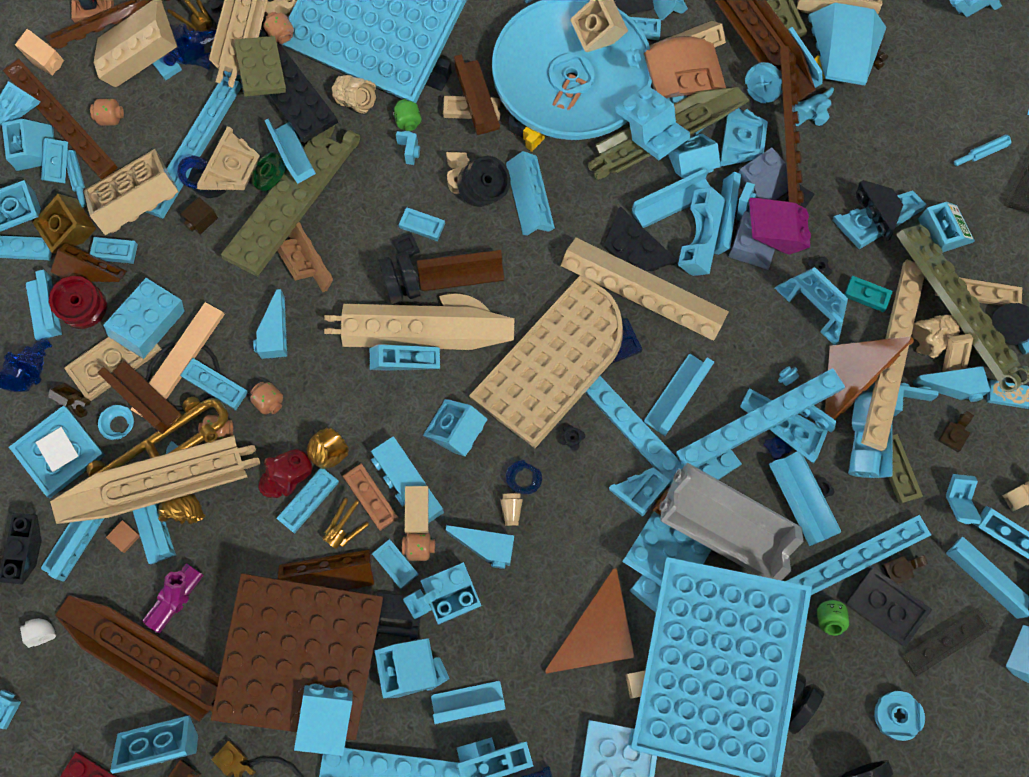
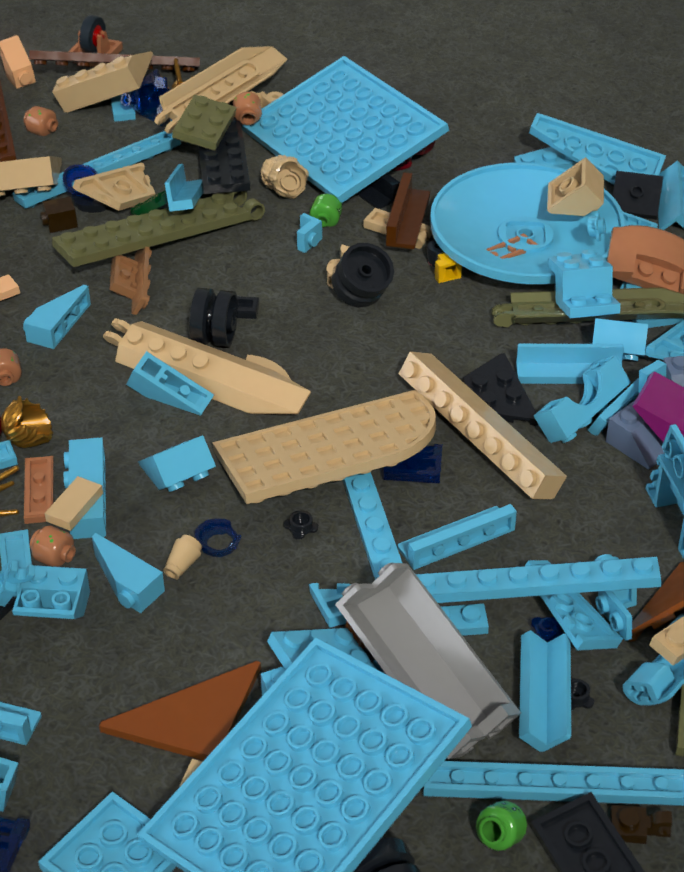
camera: 30 degrees right, 30 degrees down
(422, 224) = (275, 296): medium azure tile -> none
(460, 270) = (288, 341): reddish brown panel -> none
(529, 193) = (411, 310): medium azure panel -> none

